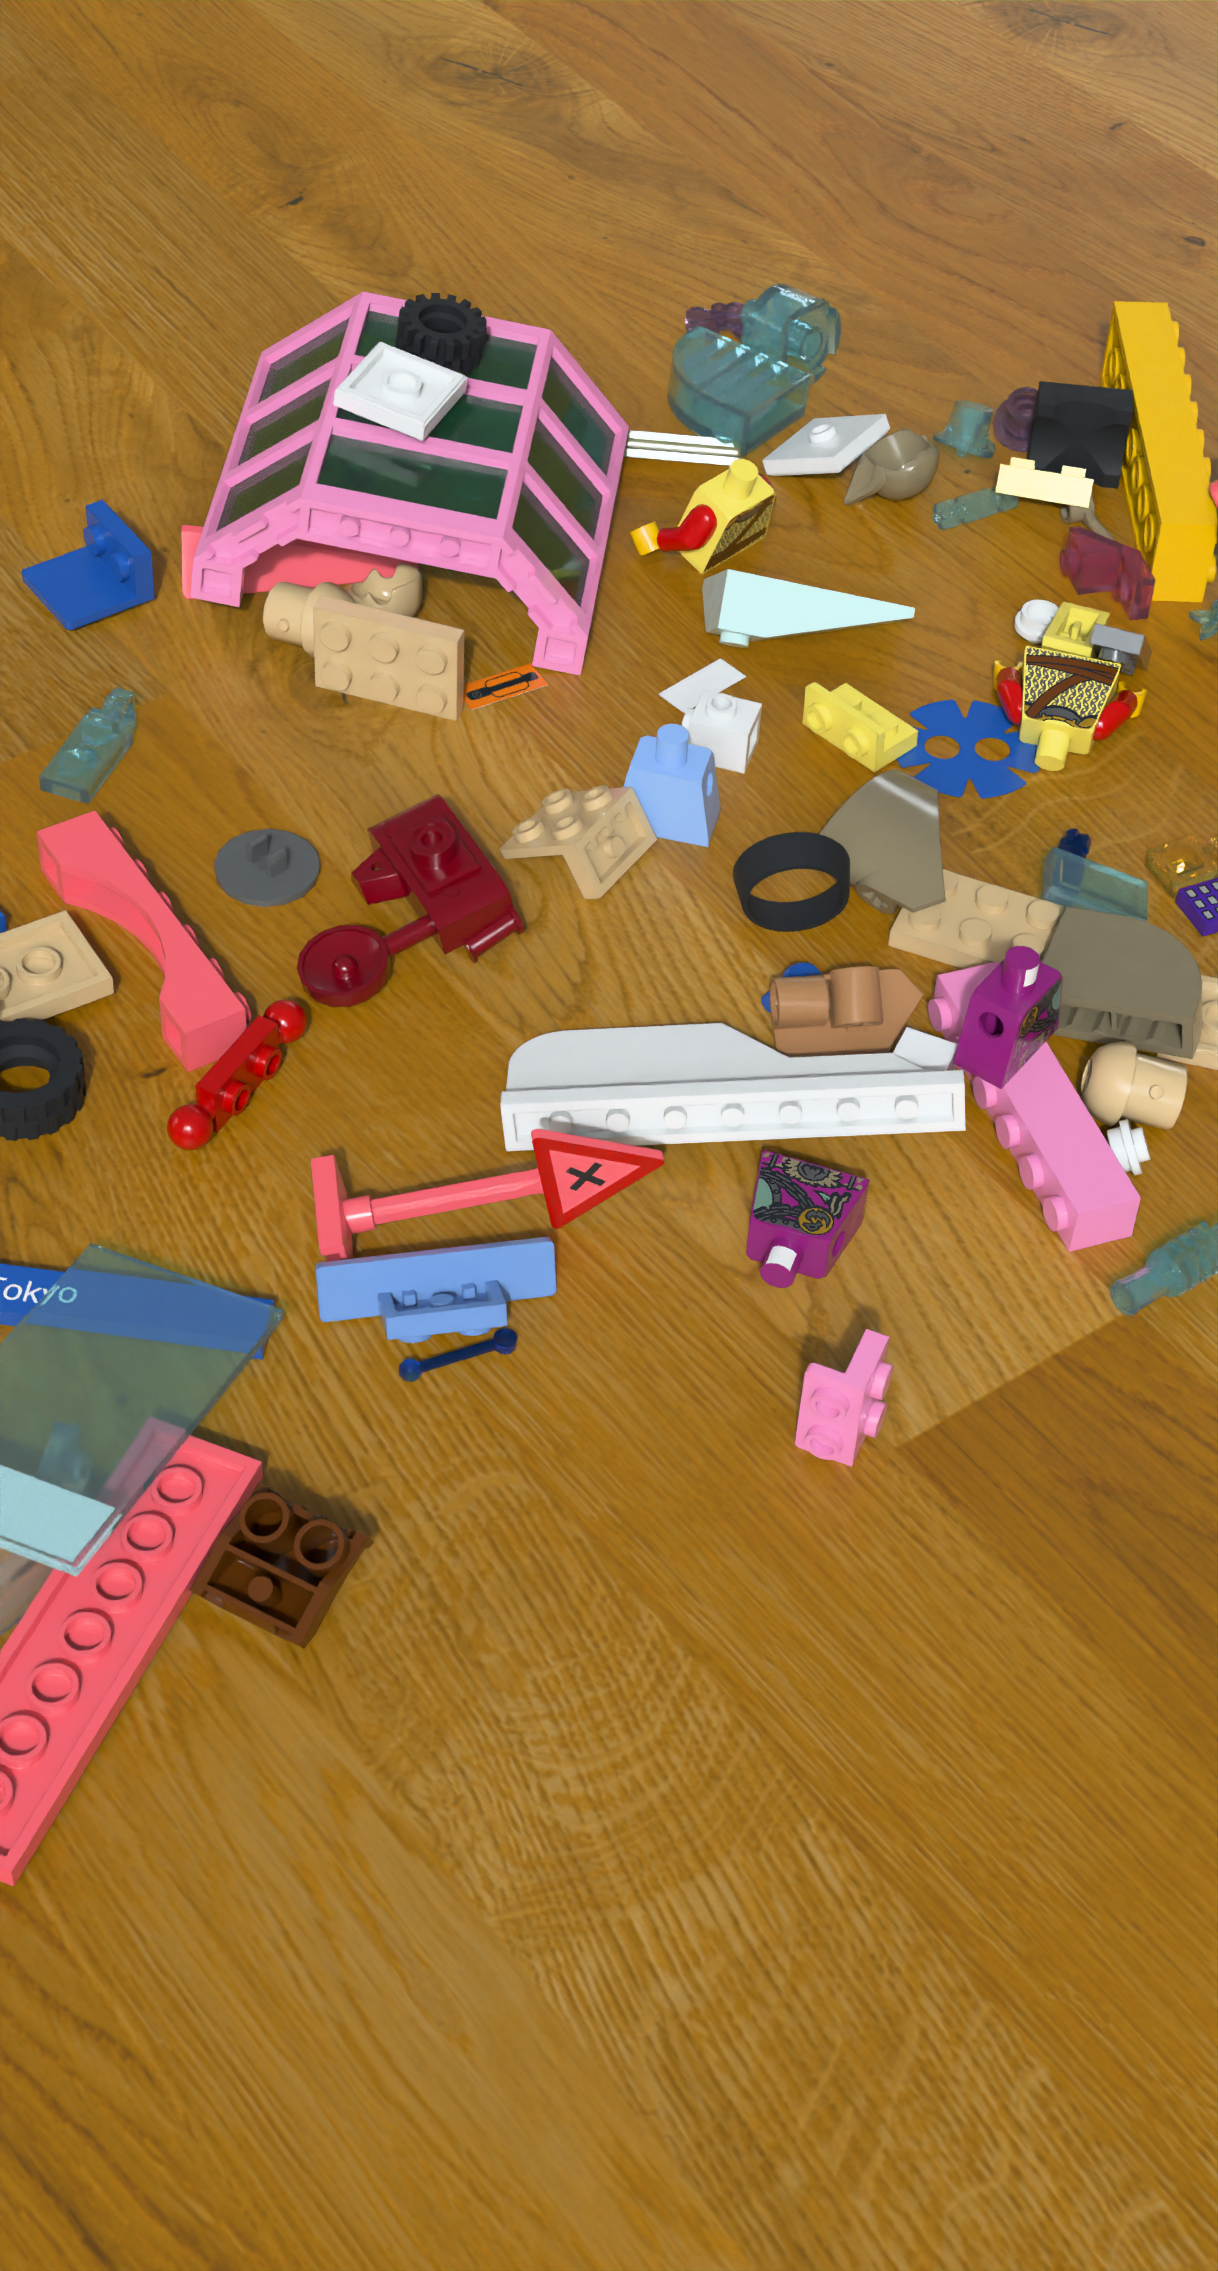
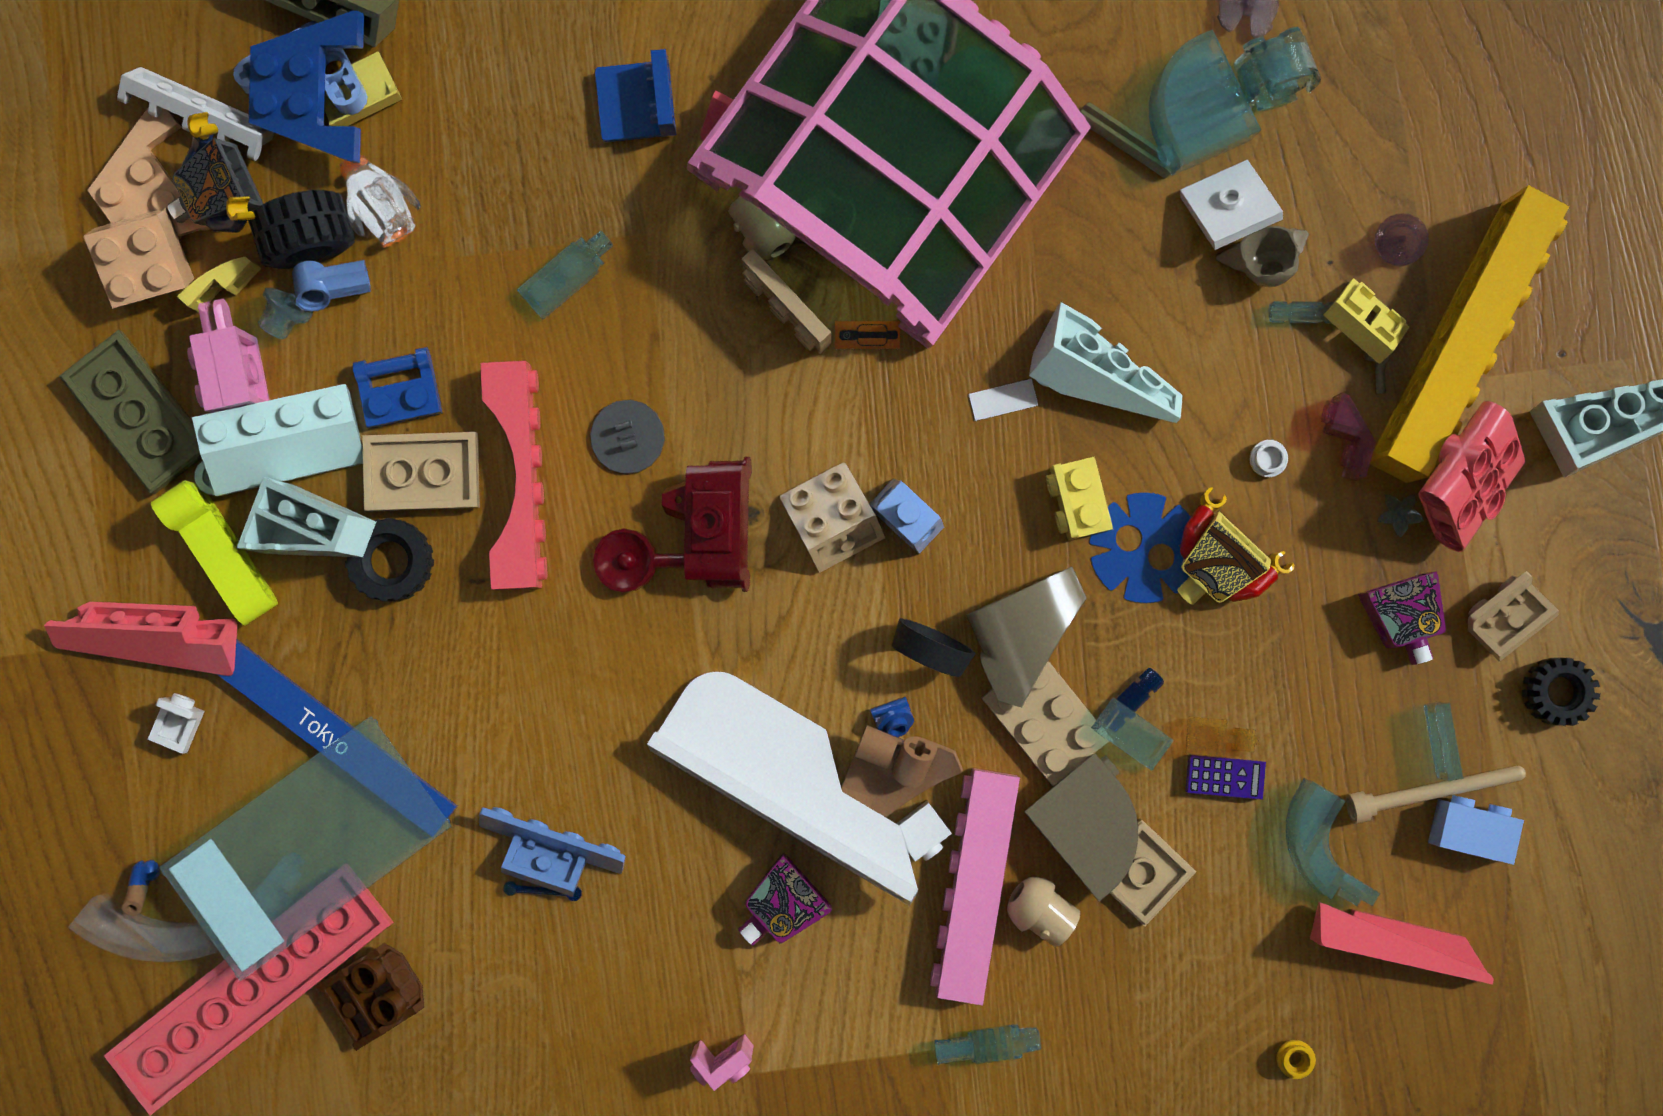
camera: 30 degrees right, 40 degrees up
(237, 1075) = (469, 651): red plate -> none
(400, 391) = (880, 113): white plate -> none
(442, 331) = (952, 35): black tyre -> none
(570, 1173) = (519, 769): coral piece -> none
(719, 520) = (1102, 257): torso -> none
(726, 727) = (980, 465): white brick -> none
(968, 430) = (1346, 236): clear light blue piece -> none
(1018, 1002) = (981, 852): magenta torso -> none
(1072, 630) = (1273, 501): light yellow slope -> none
(1081, 430) = (1420, 292): black brick -> none
(1121, 647) = (1289, 541): plate -> none
(1129, 1146) = (1012, 947): white plate -> none

